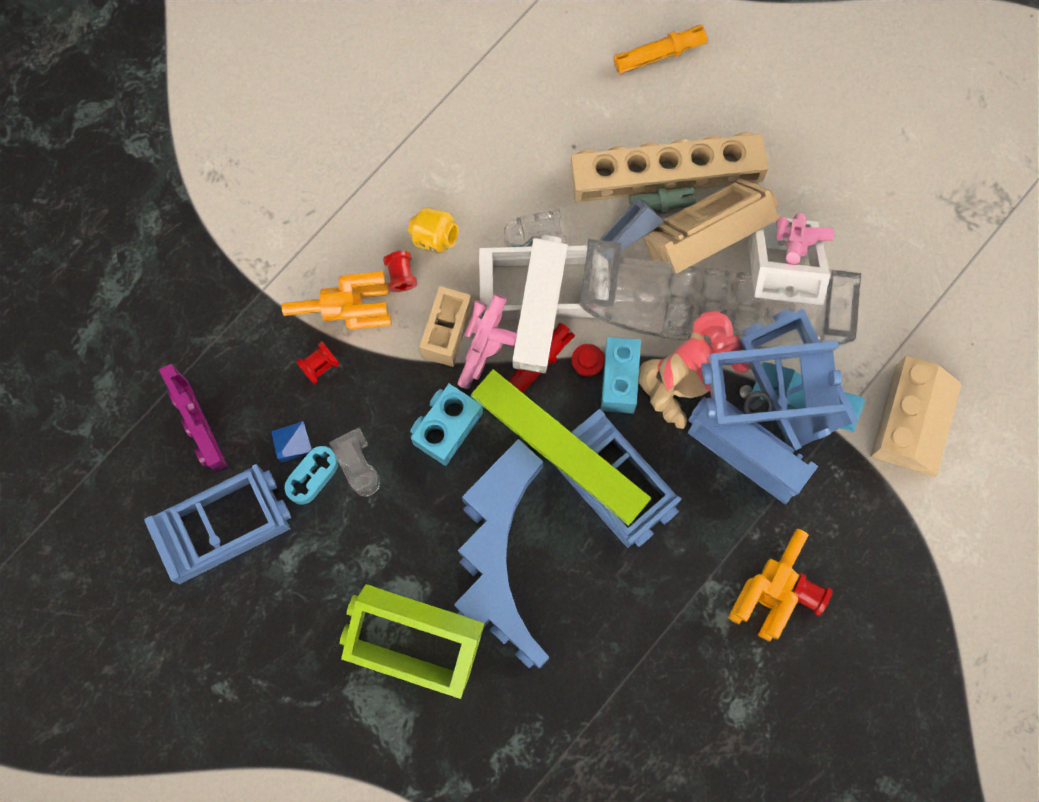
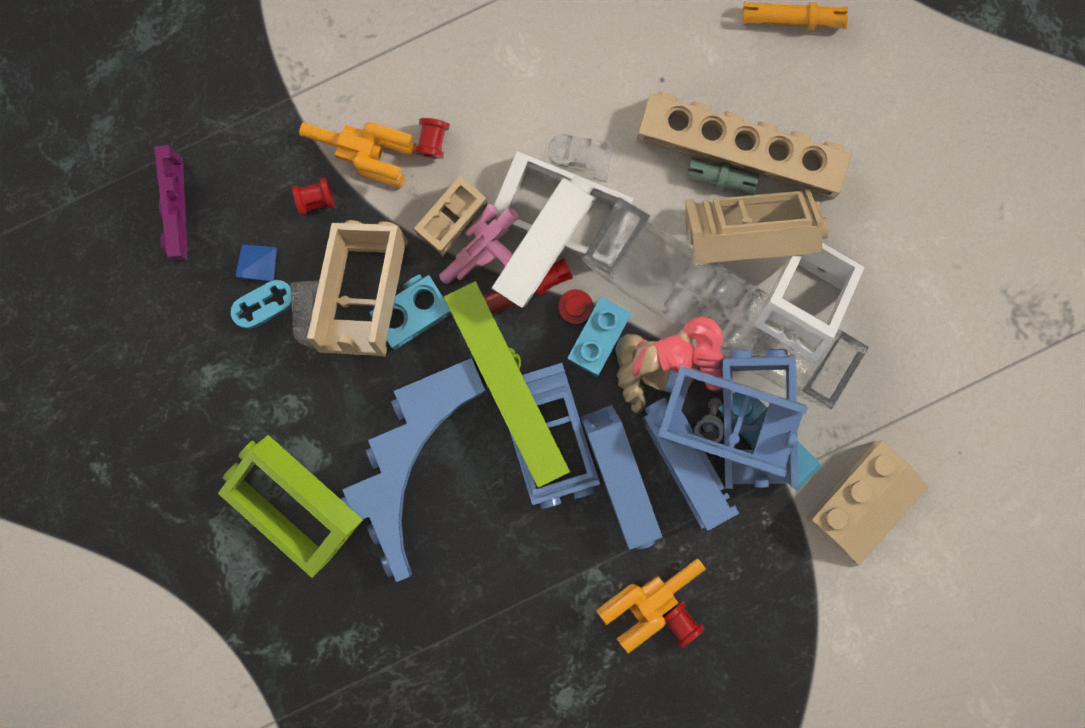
camera: 25 degrees right, 10 degrees up
(174, 541) = (107, 321): medium blue door -> none
(406, 462) = (349, 335): none -> tan door
(433, 230) = (481, 110): yellow head -> none
(633, 224) = (675, 193): sand blue slope -> none
(698, 487) = (621, 477): none -> medium blue slope
(800, 236) = (831, 281): bright pink piece -> none

